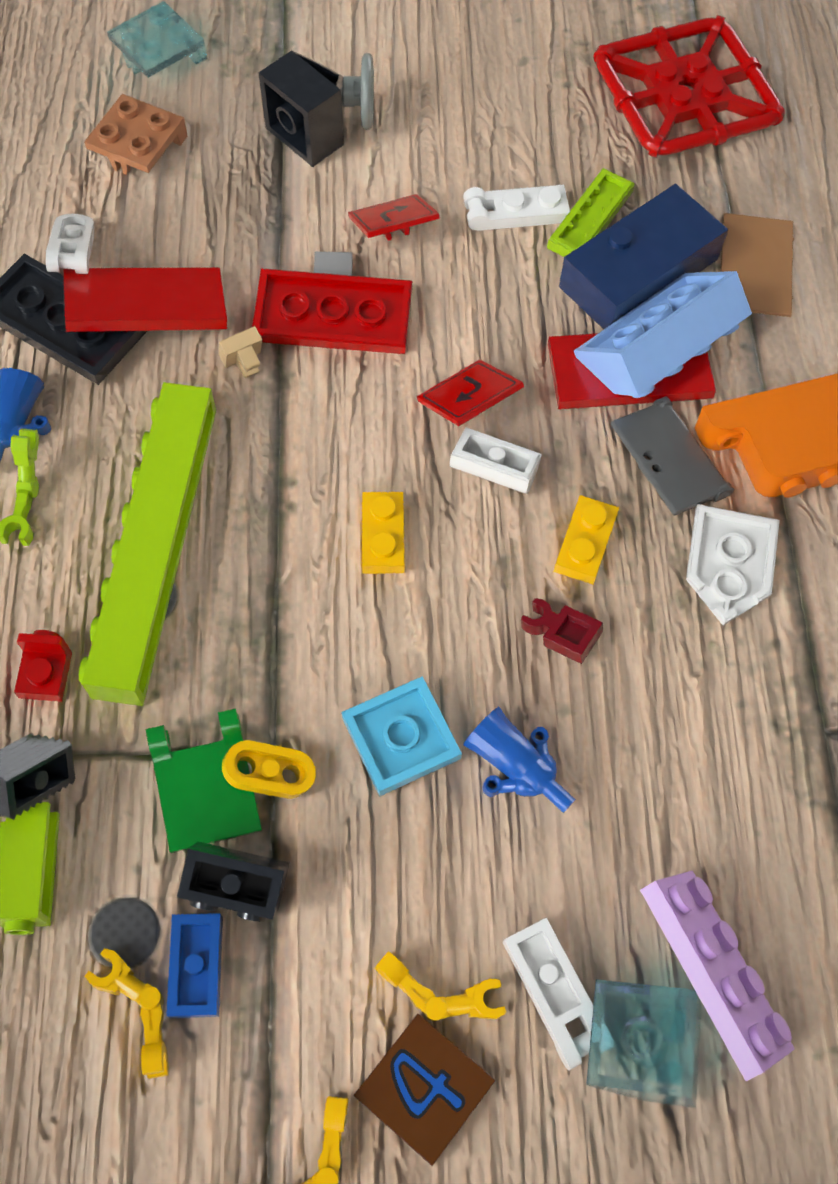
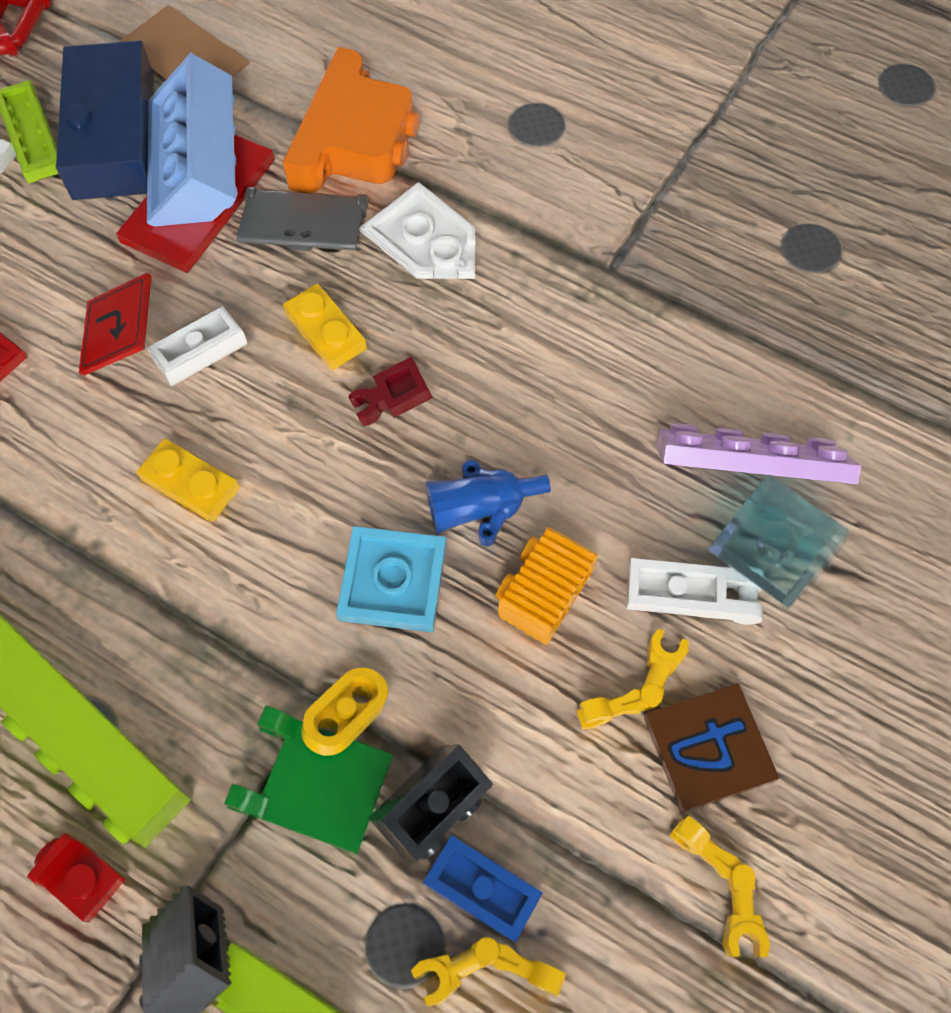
camera: 55 degrees left, 0 degrees up
(476, 860) = (545, 585): none -> light orange brick

